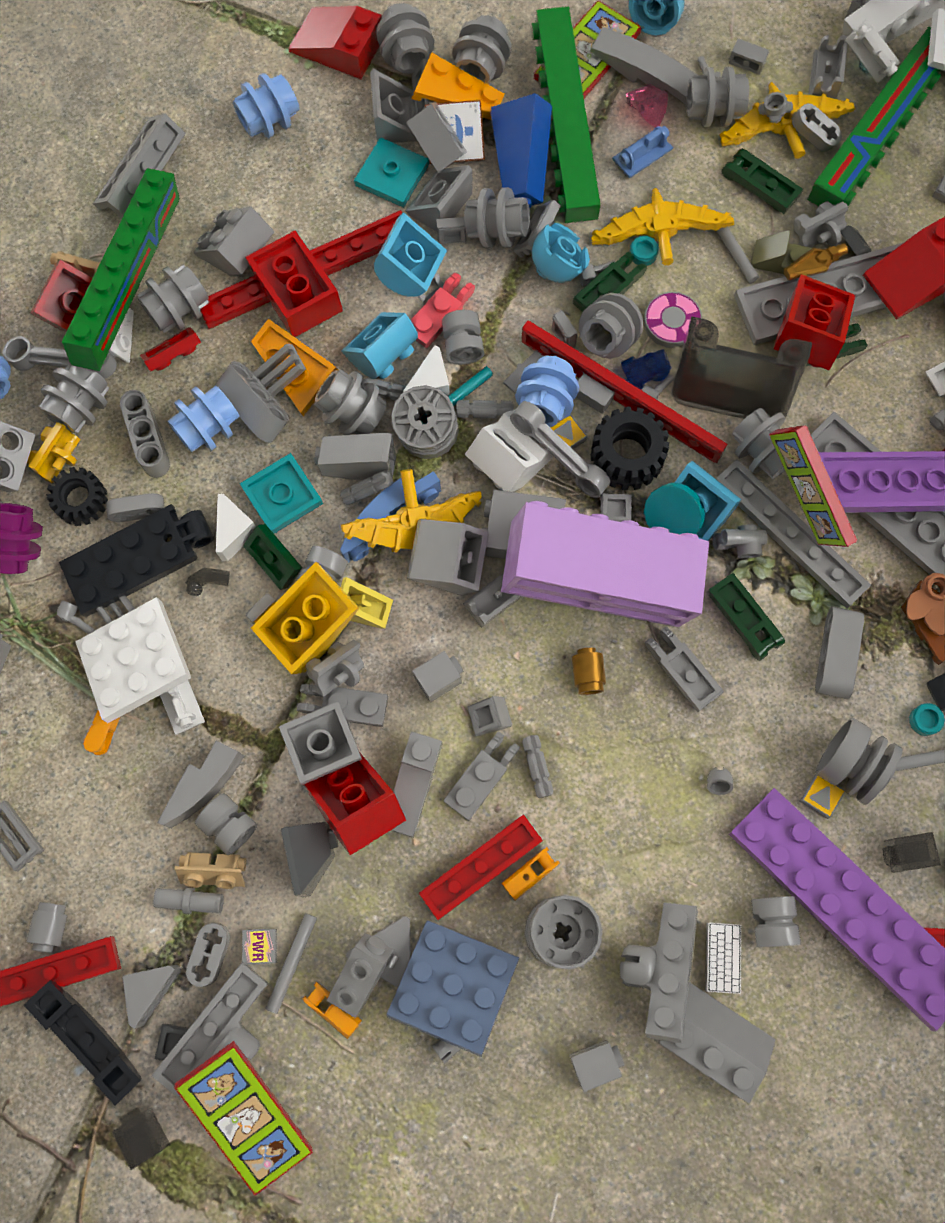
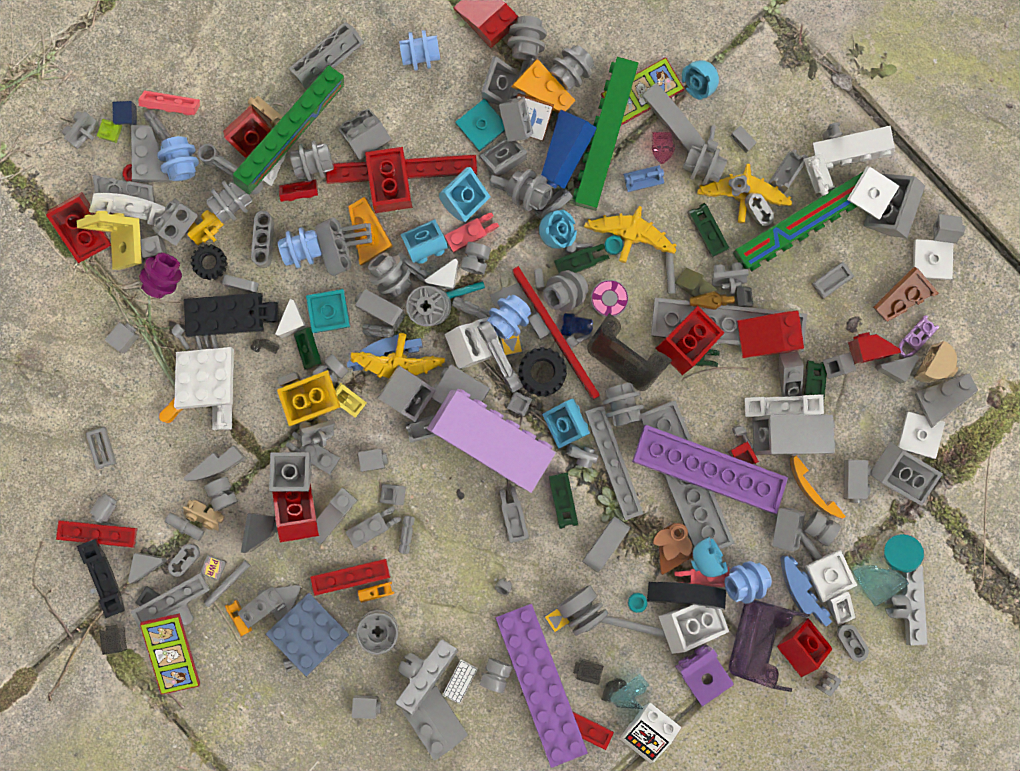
camera: 20 degrees right, 10 degrees up
(588, 671) = (458, 494): pearl gold brick -> none
(674, 508) = (549, 423): teal tile -> none
(813, 486) = (628, 447): tile -> none

